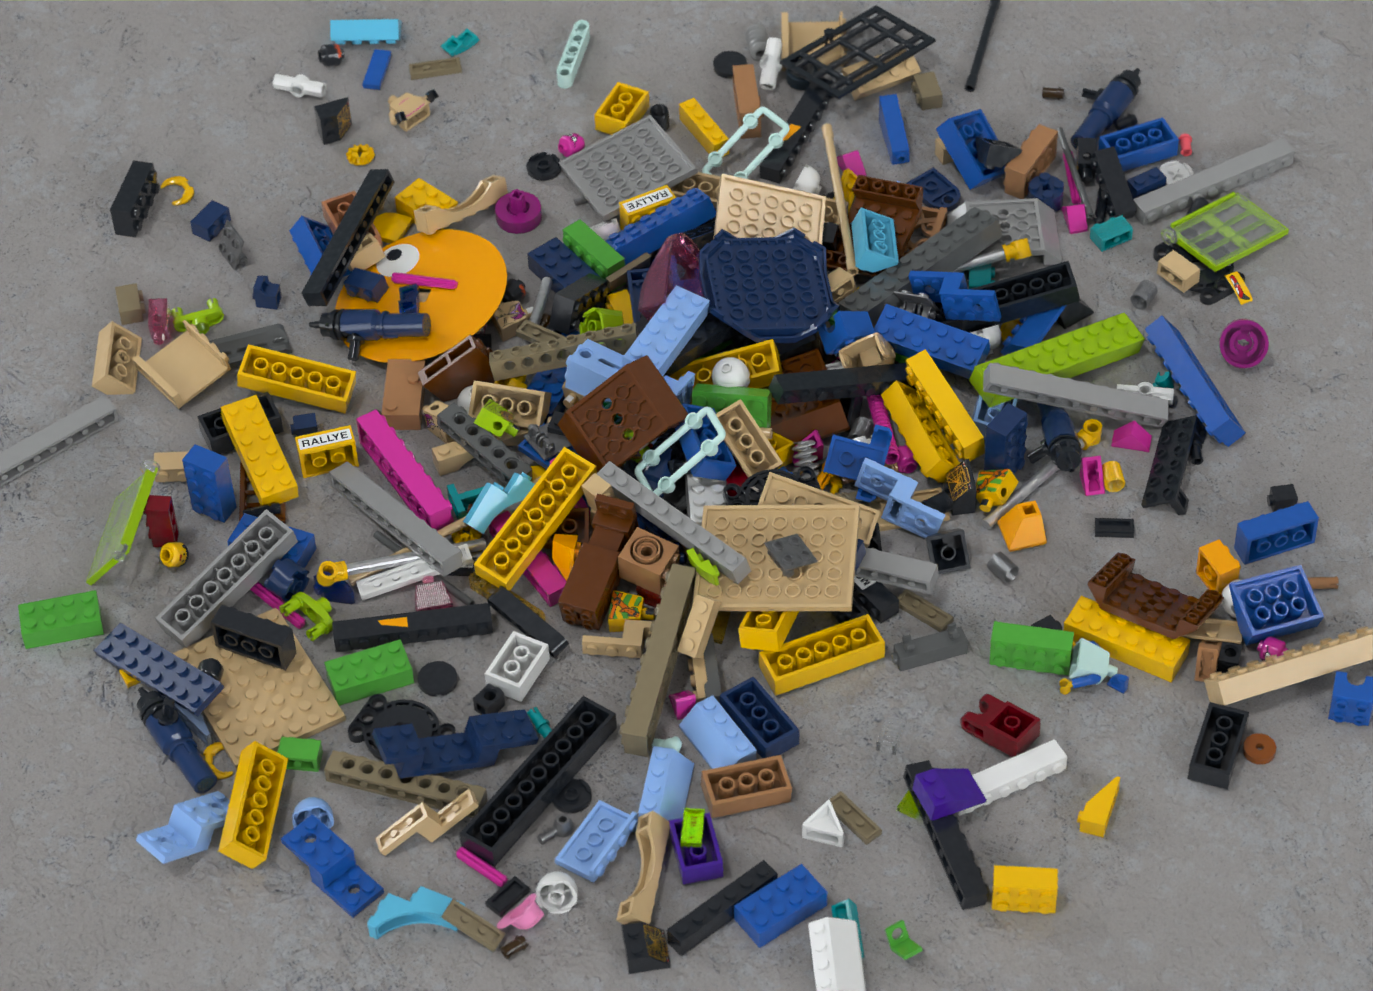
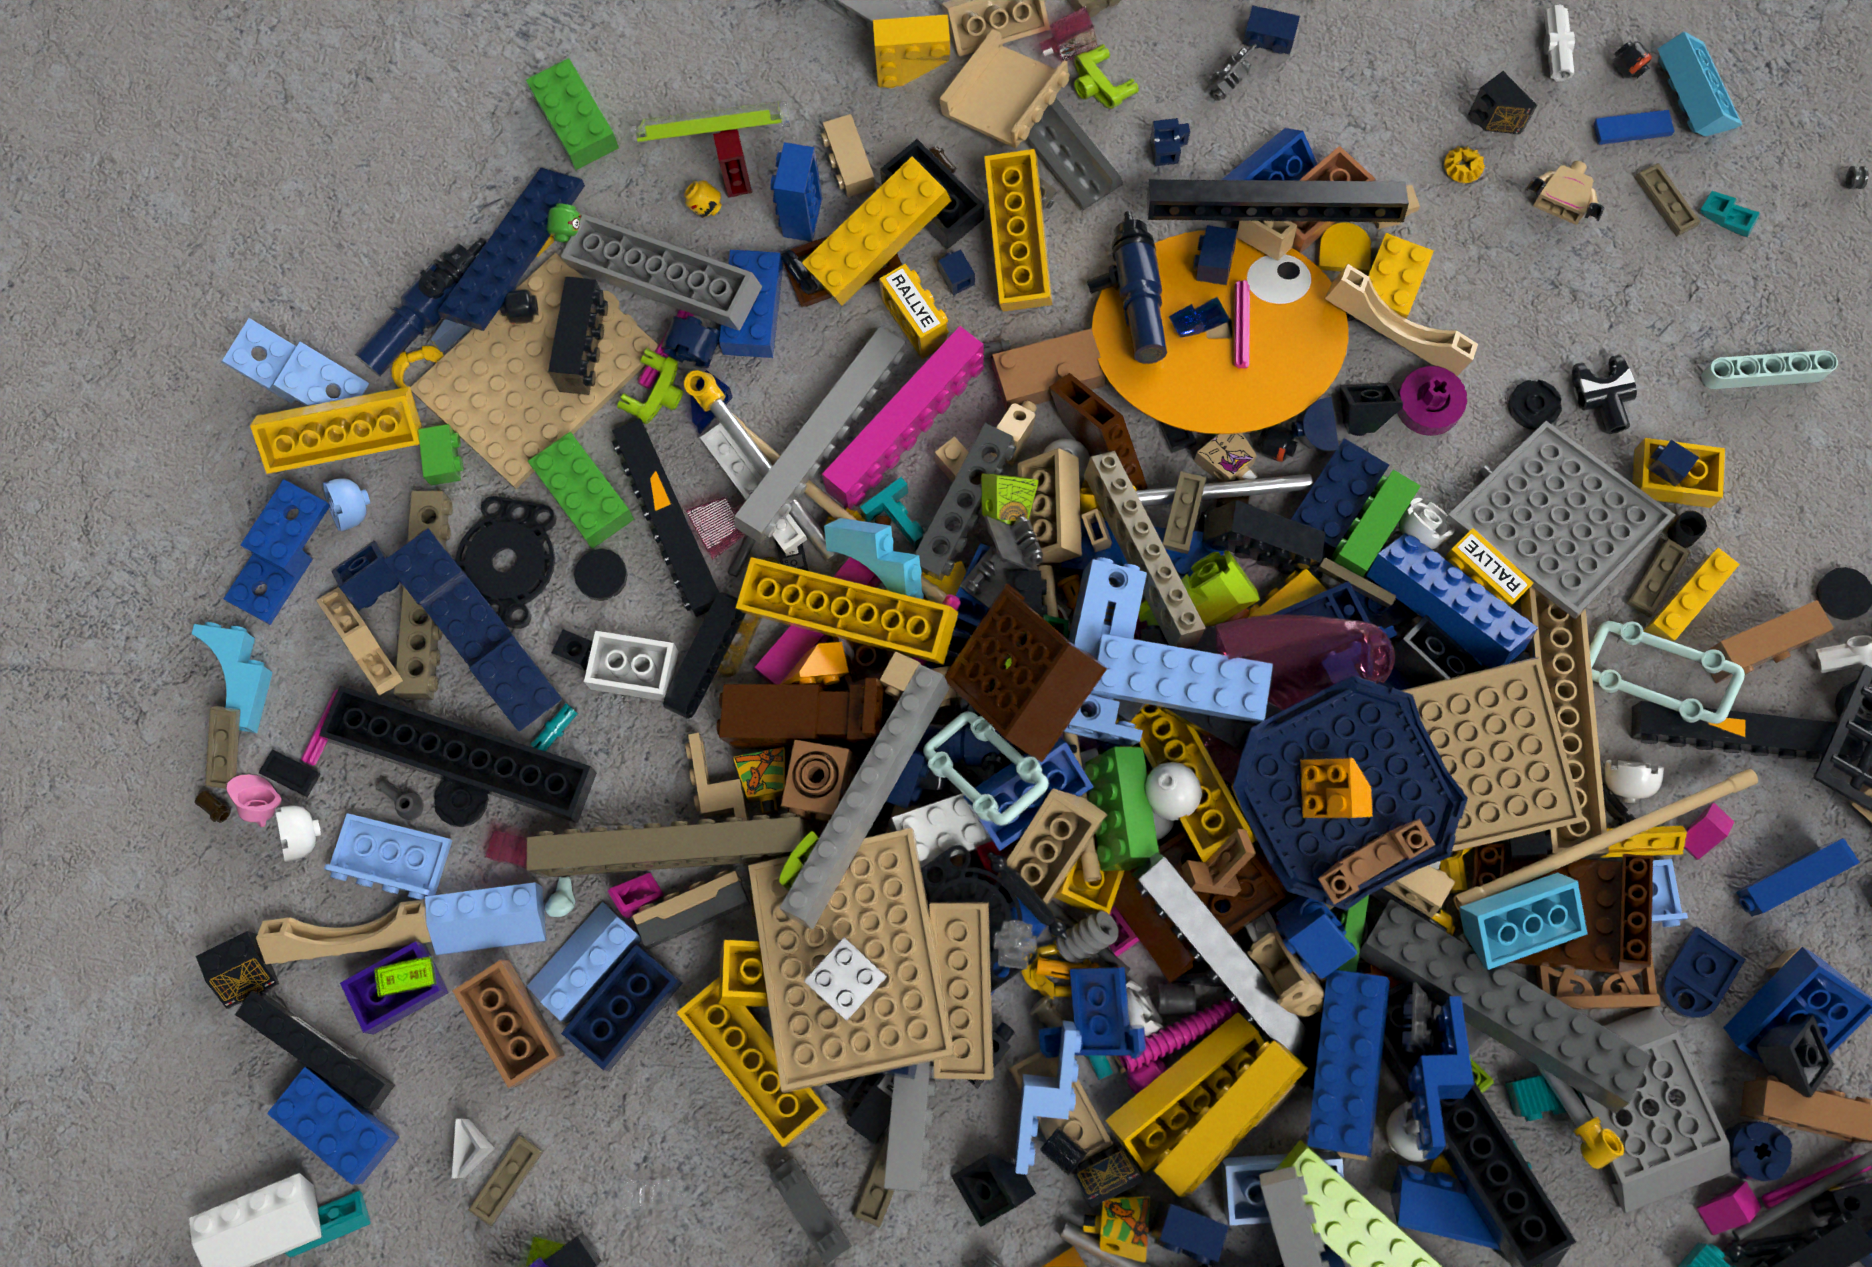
camera: 75 degrees right, 25 degrees up
(121, 402) = (909, 47): none -> yellow slope
(155, 631) = (563, 222): none -> bright green head
(372, 815) = (365, 576): none -> dark blue slope
(511, 240) = (1368, 406): none -> black slope
(517, 260) = (1317, 426): none -> dark blue brick
(524, 416) = (1016, 542): none -> flat silver hinge
(537, 381) = (1092, 517): none -> tan piece
(550, 130) = (1606, 393): none -> black connector
(570, 144) = (1585, 427): dark pink head -> none
(618, 103) = (1672, 462): none -> dark blue brick
(622, 766) = (507, 849): none -> clear pink axle
(685, 142) = (1658, 577): none -> dark tan tile
(699, 626) = (719, 884): tan brick -> none
(764, 282) = (1334, 789): none -> light orange slope
(769, 462) = (1027, 896): none -> black wheel
(787, 355) = (1220, 871): none -> medium nougat bracket
(800, 467) = (1015, 944): none -> clear brick
(811, 278) = (1374, 858): none -> medium nougat slope

